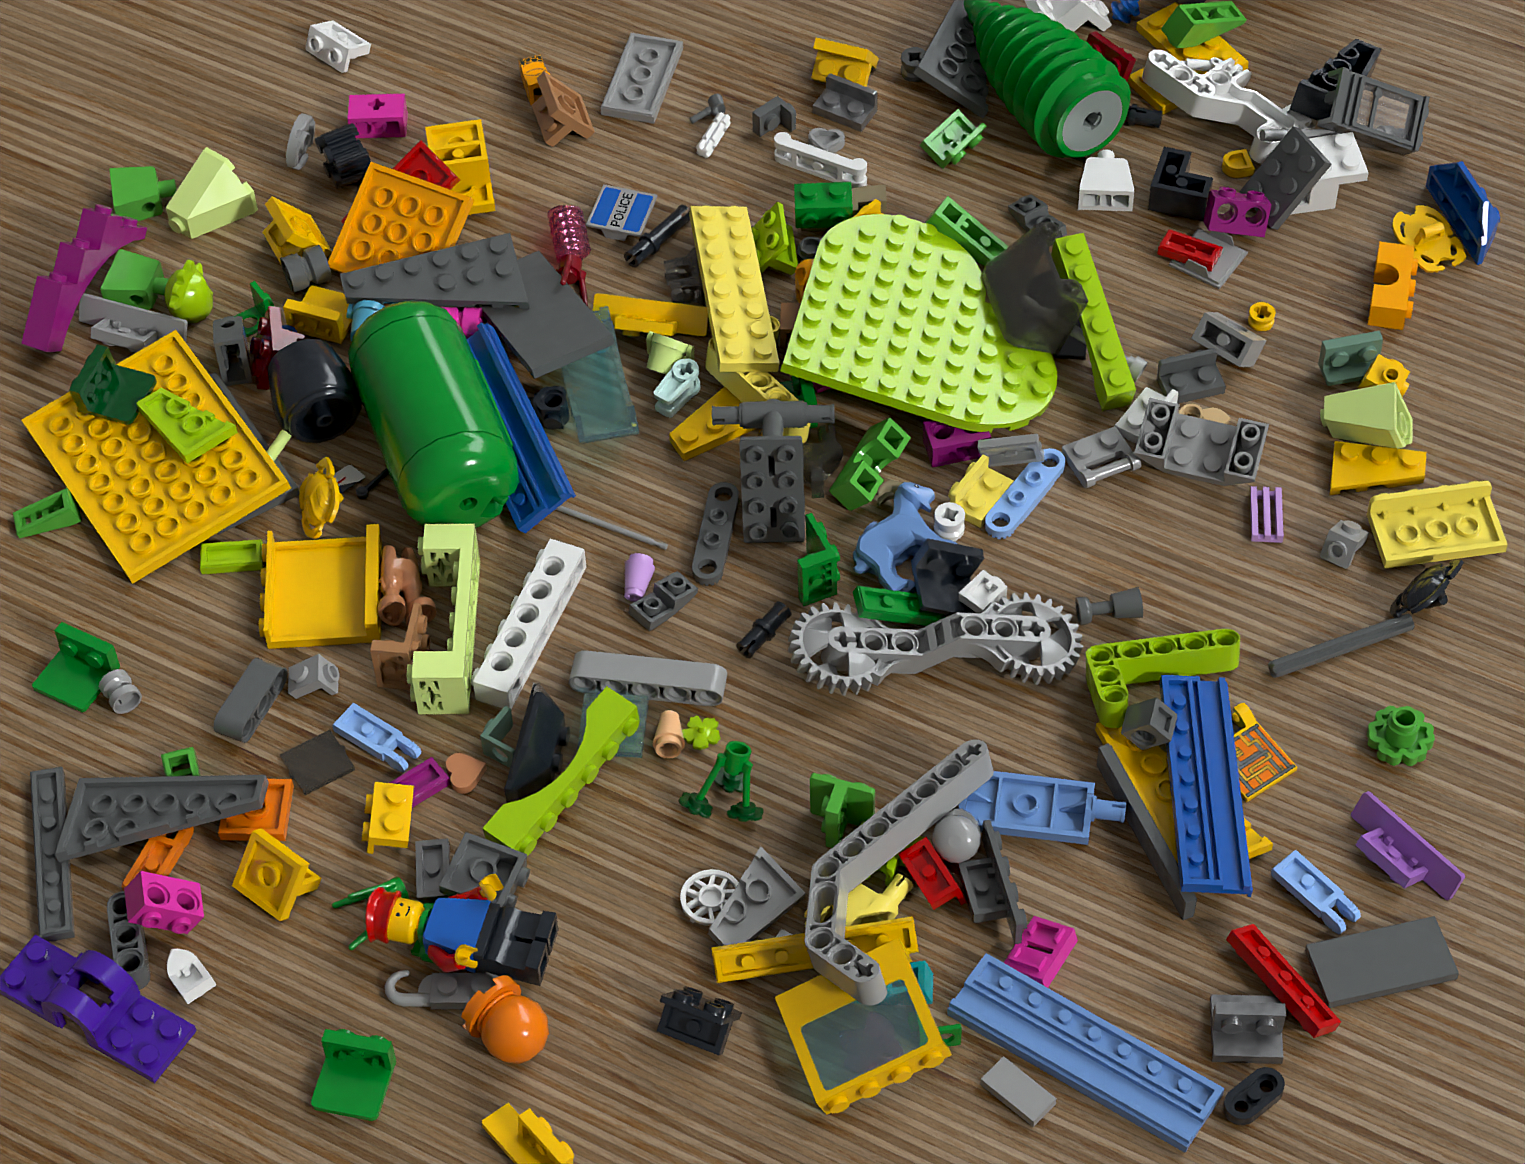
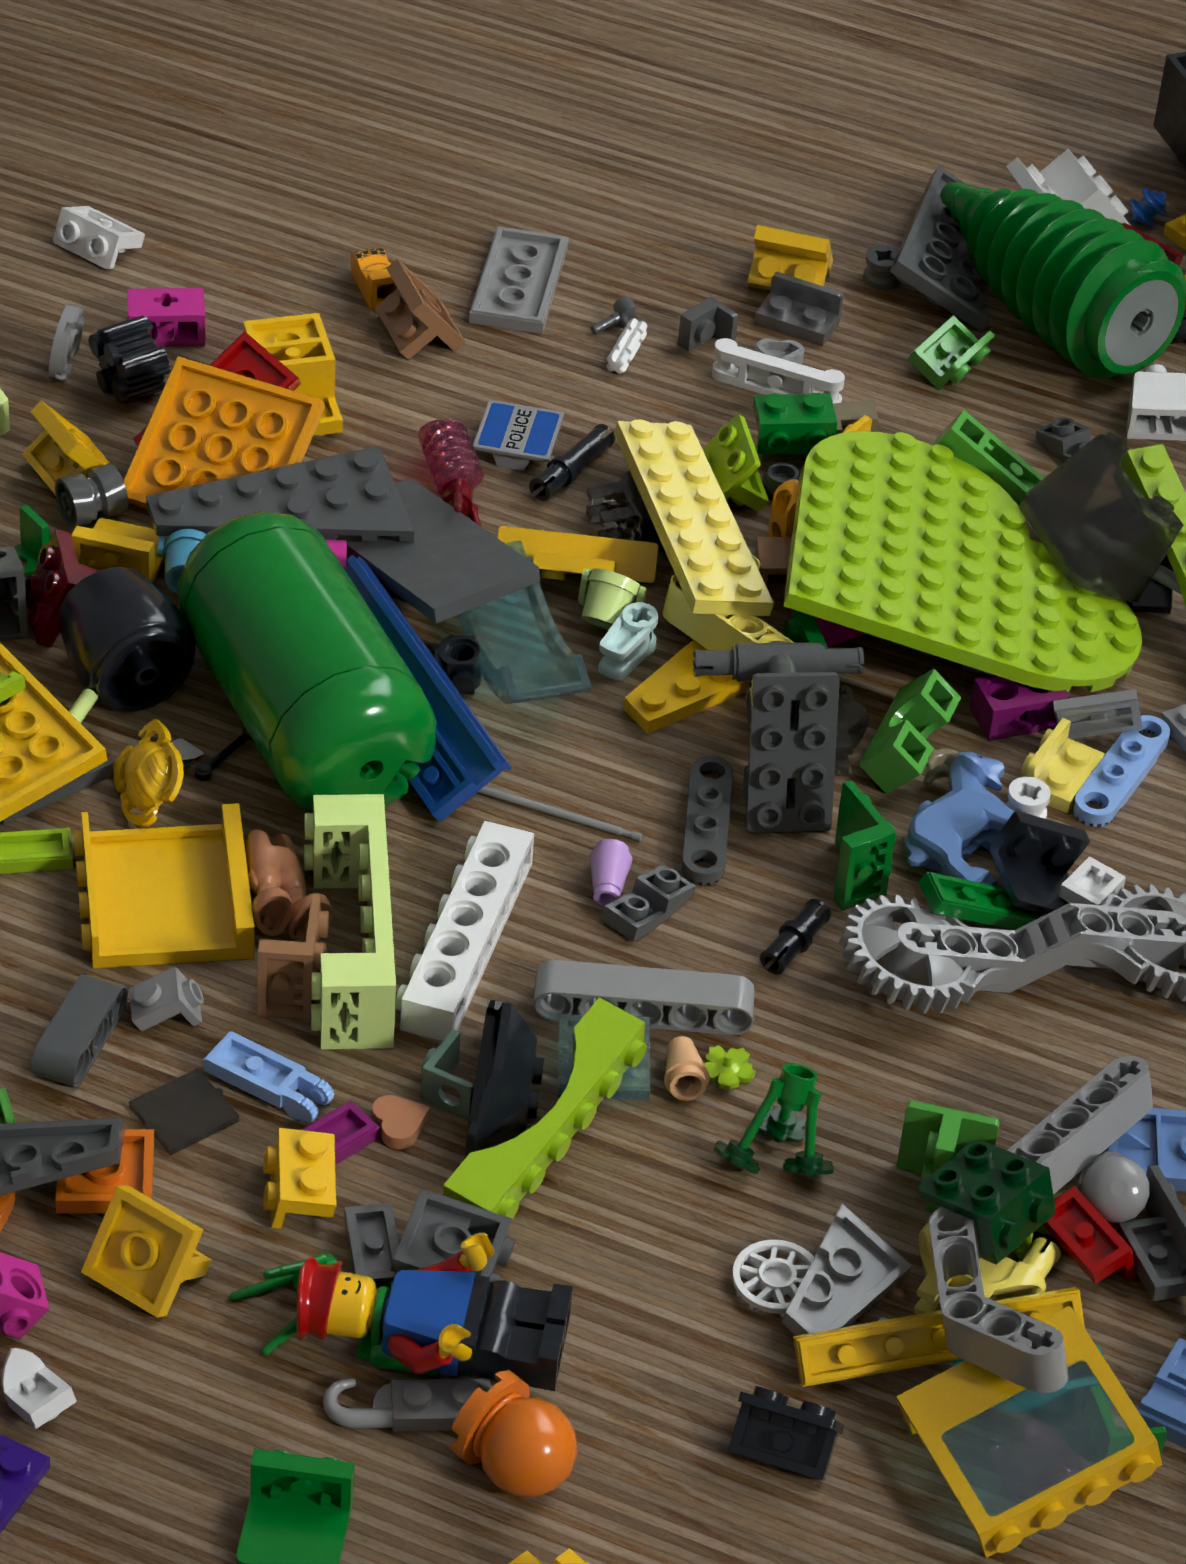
camera: 10 degrees left, 10 degrees down
(861, 847) = (998, 1191): none -> dark green bracket

